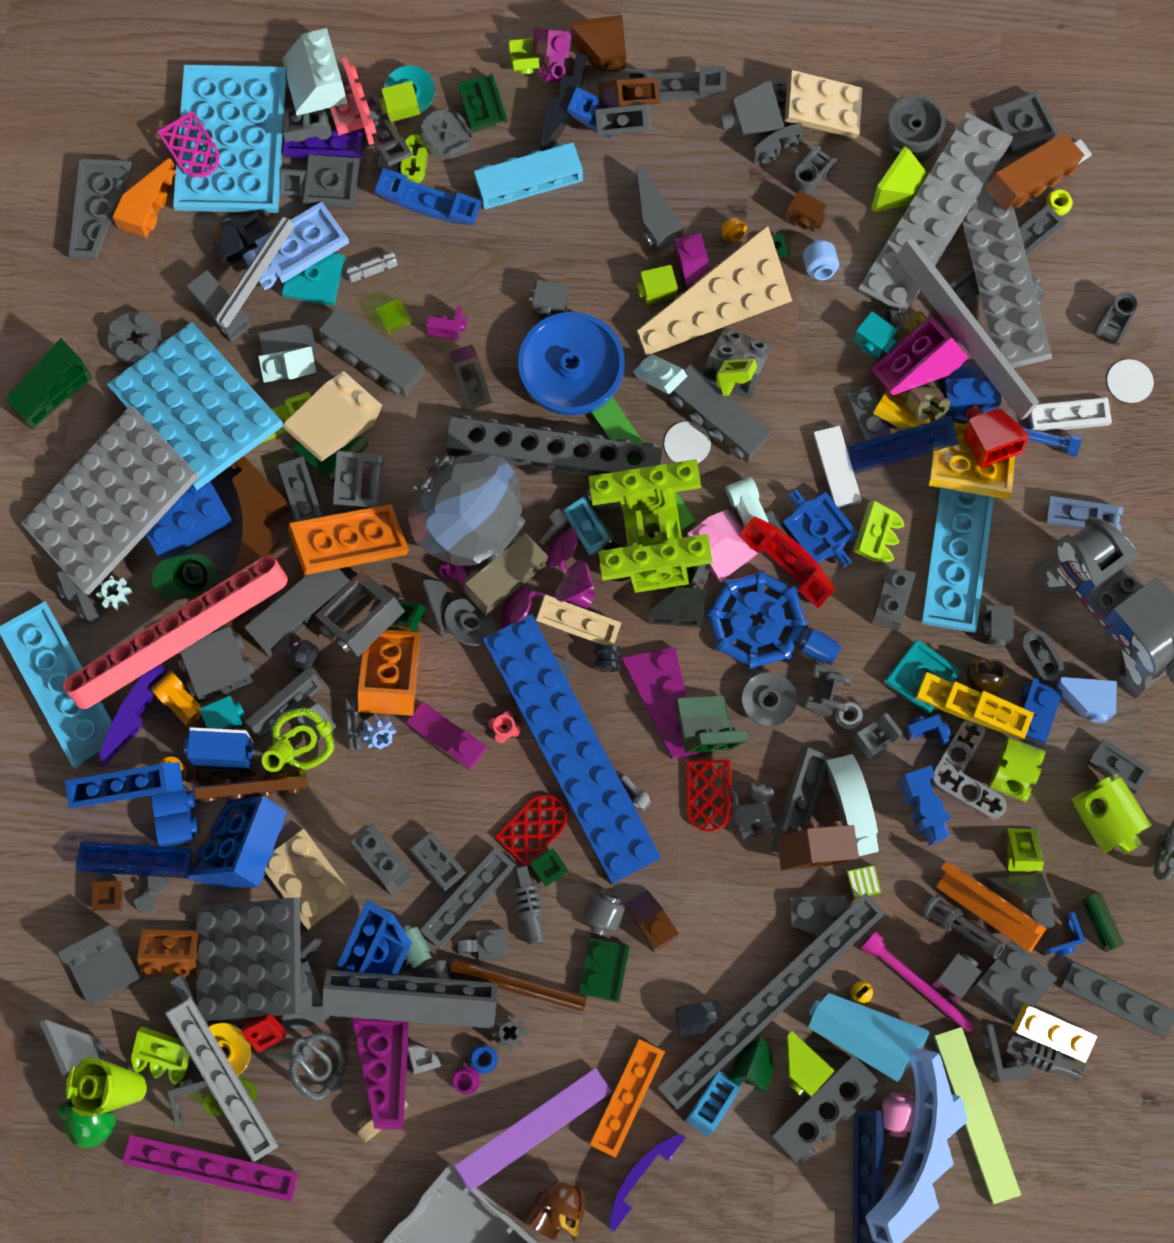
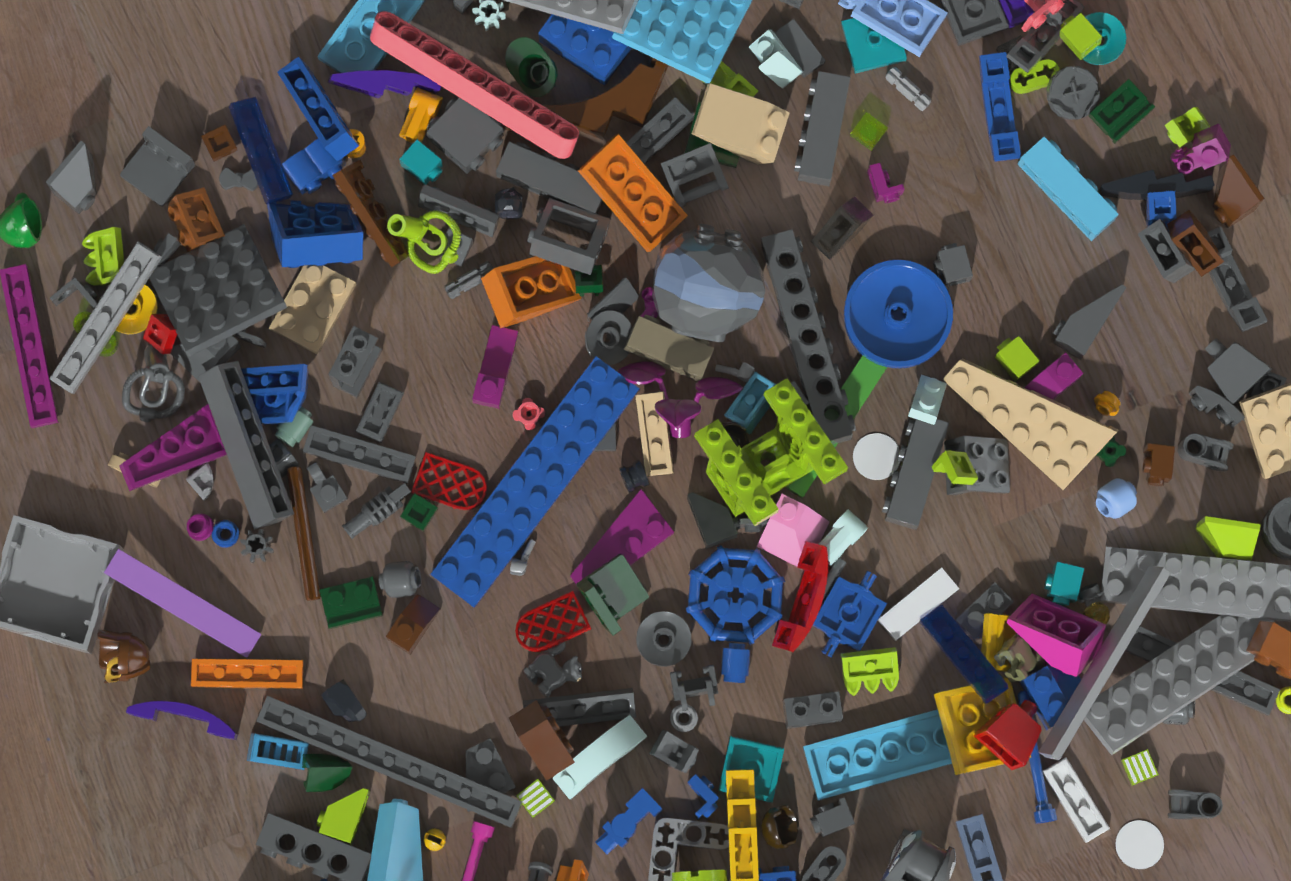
camera: 60 degrees right, 5 degrees up
(102, 1087) = (51, 221): lime cone -> none
(219, 749) = (389, 174): blue piece -> none
(377, 731) = (471, 304): light blue gear -> none
(1064, 349) = (1139, 767): none -> tile

